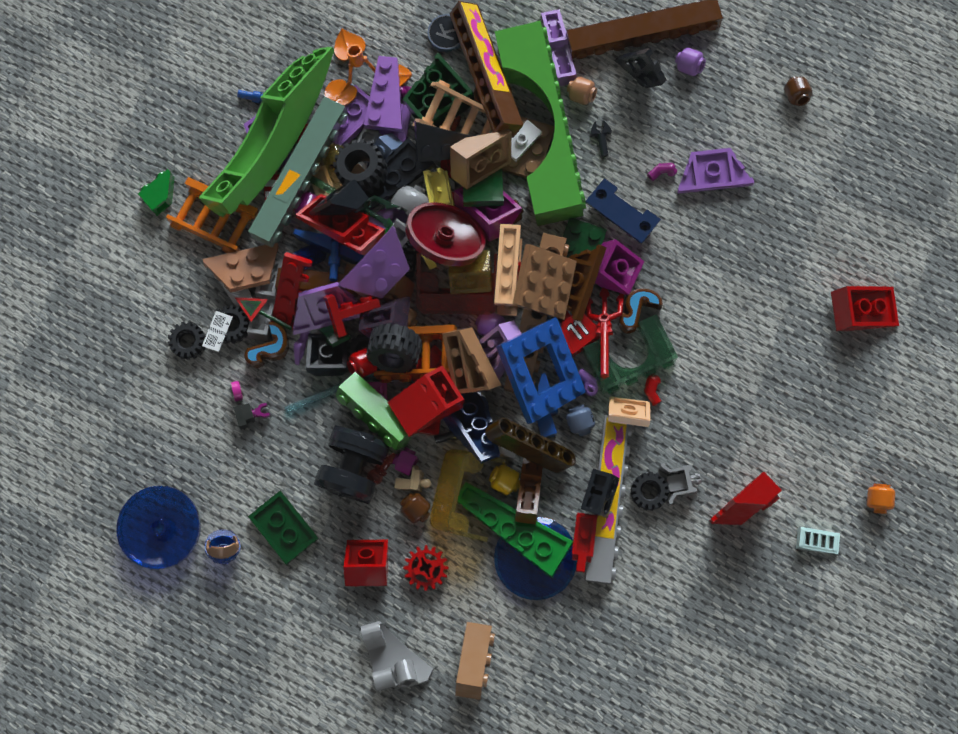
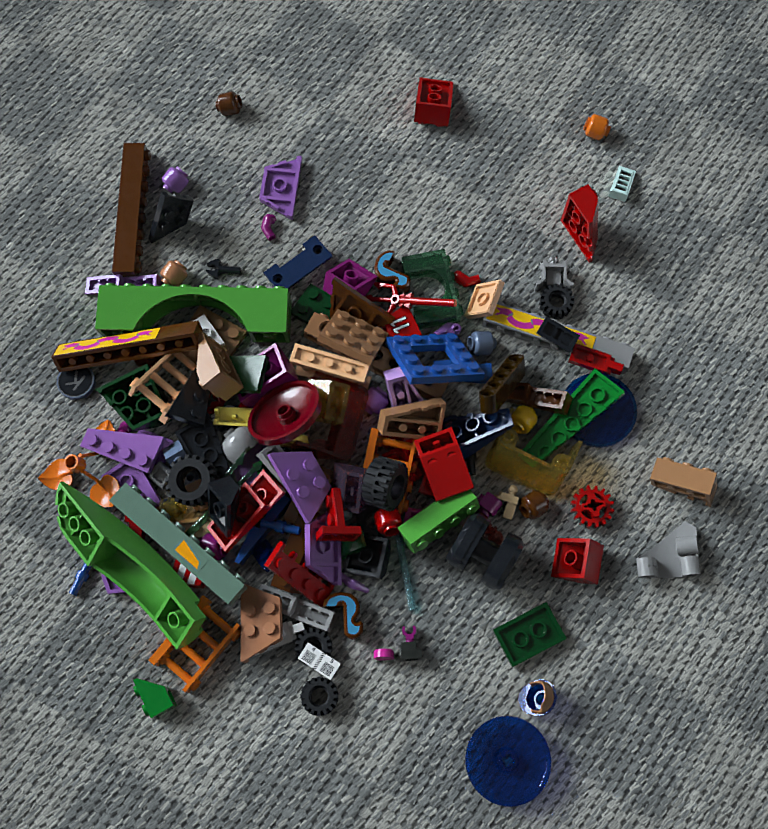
camera: 80 degrees left, 5 degrees down
(253, 307) = (303, 619): piece -> none

